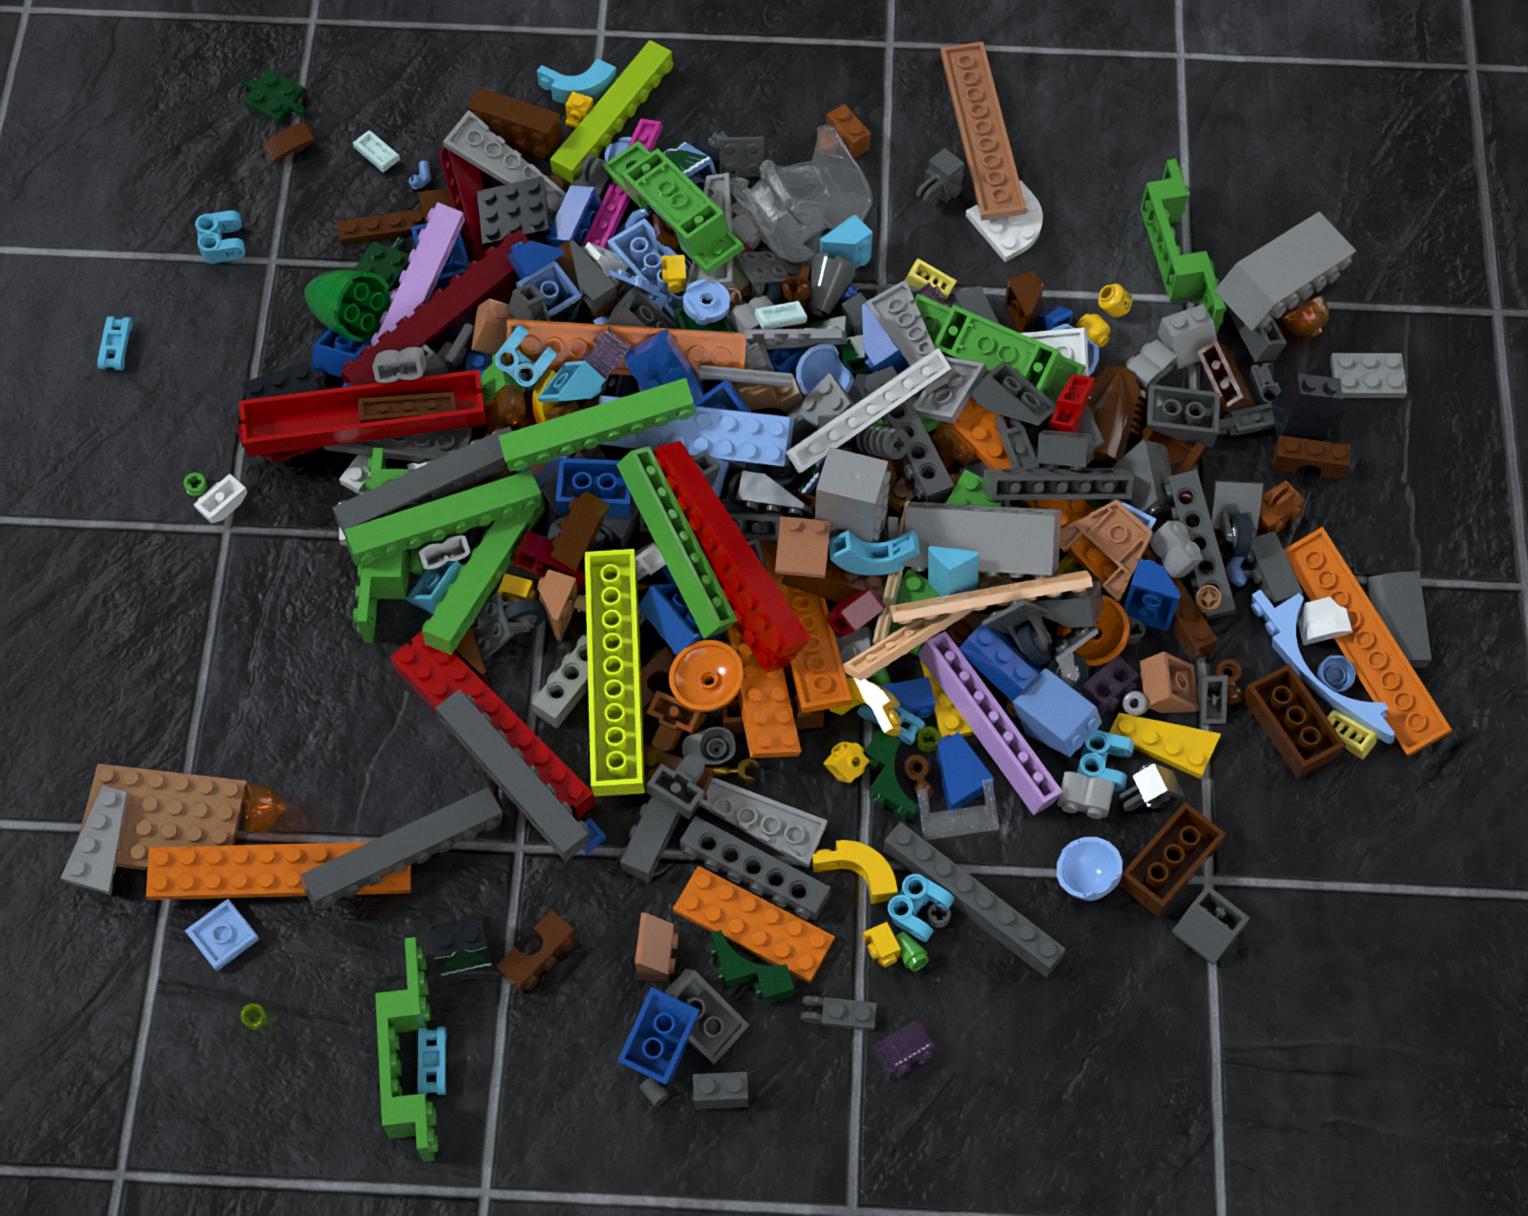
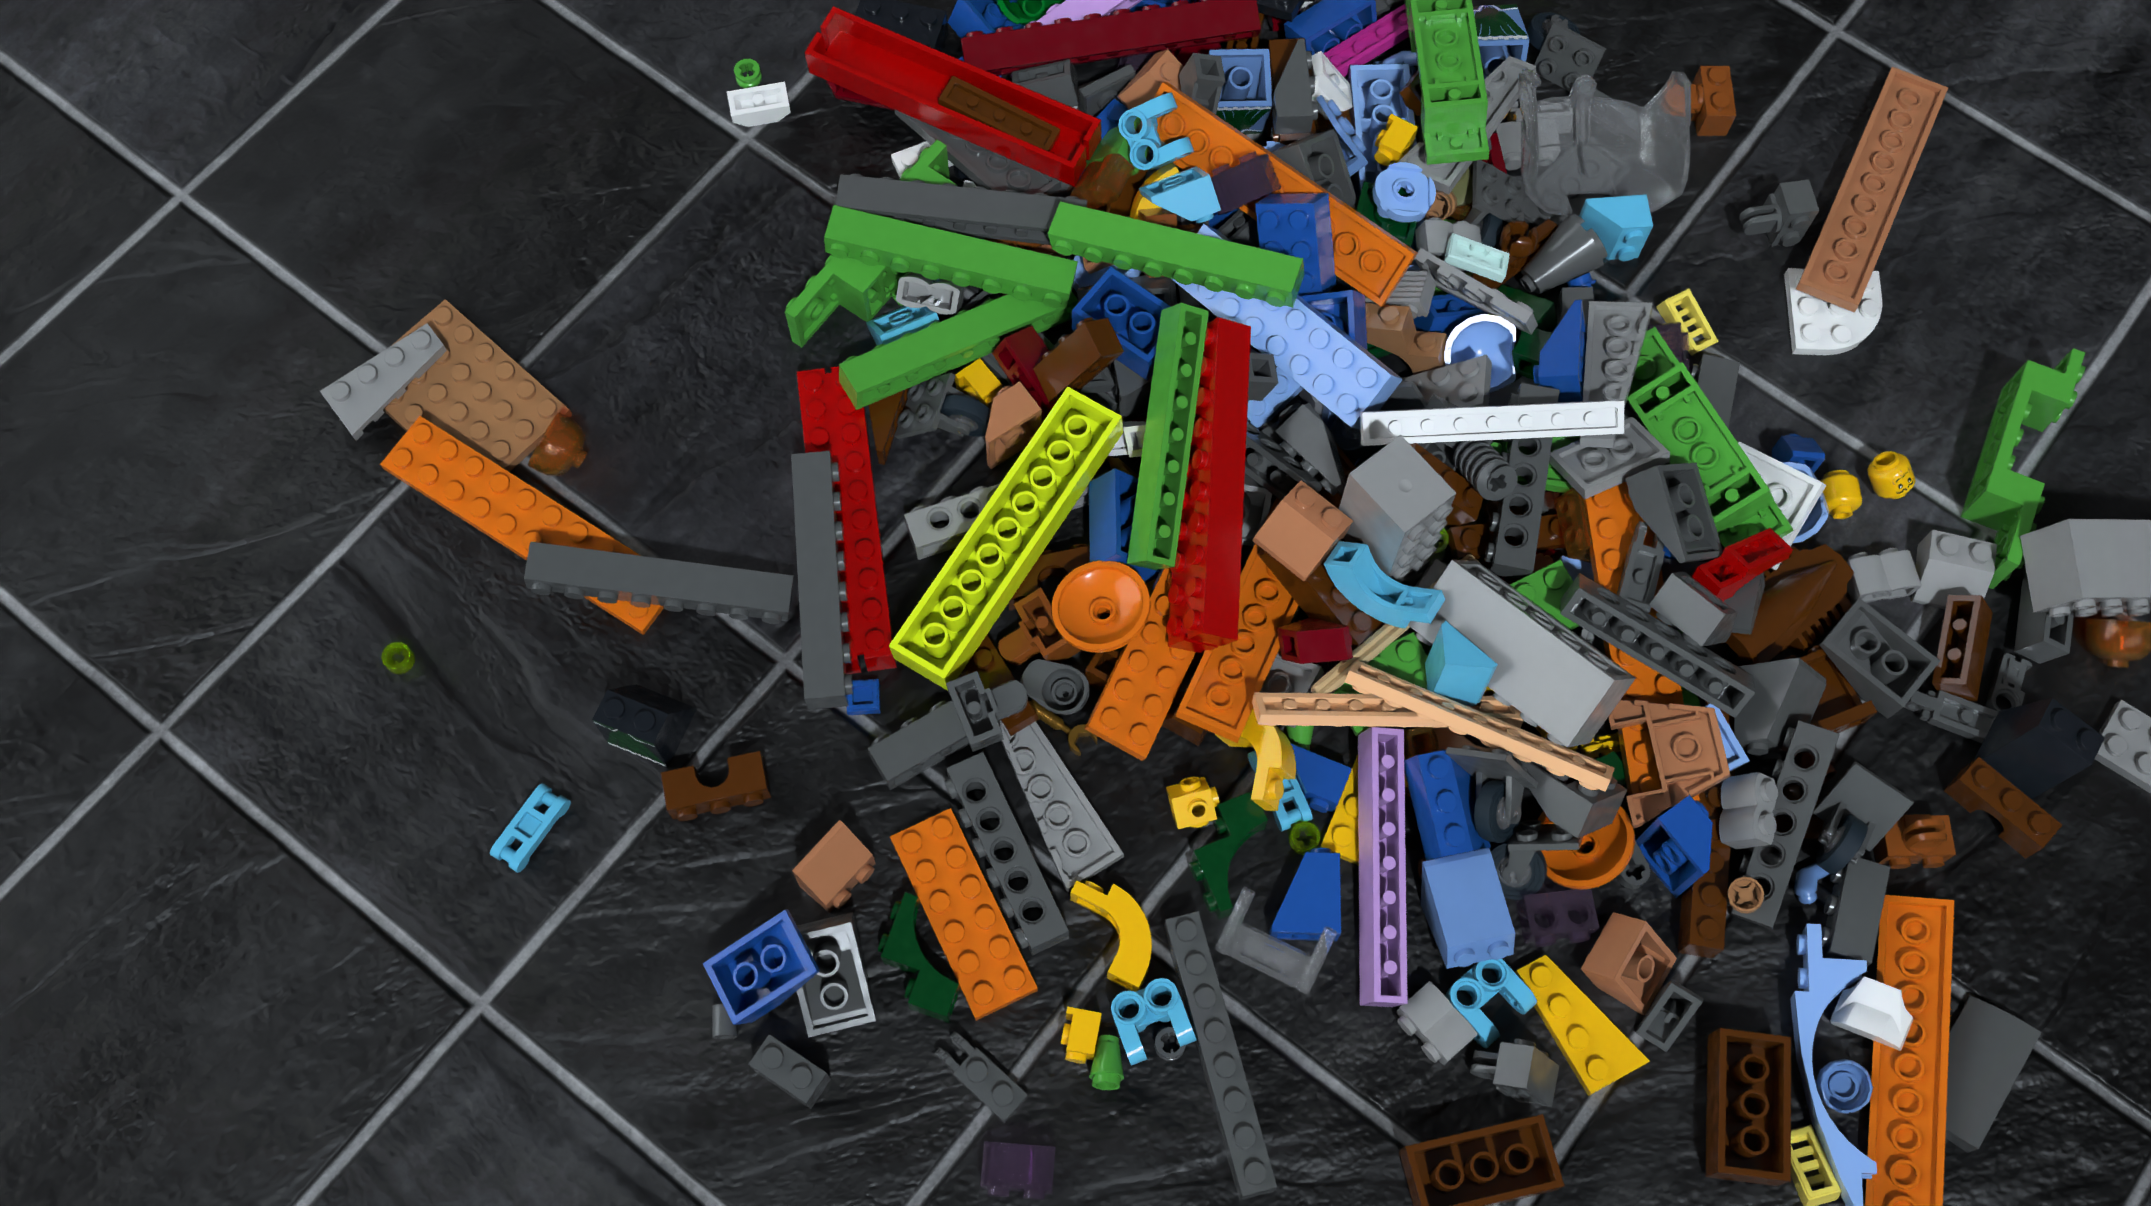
camera: 35 degrees right, 5 degrees up
(222, 934) = (429, 553): light blue plate -> none
(392, 365) = (1021, 65): light grey brick -> none
(400, 1013) = (514, 751): bright green bracket -> none
(531, 257) = (1247, 31): blue slope -> none
(746, 375) = (1386, 301): light grey axle -> none
(920, 777) = (1263, 873): reddish brown plate -> none
(1024, 300) = (1780, 409): reddish brown slope -> none
(1089, 868) = (1374, 1112): light blue cylinder -> none
(1135, 703) = (1572, 957): light grey piece -> none
(1234, 692) = (1701, 1023): reddish brown plate -> none

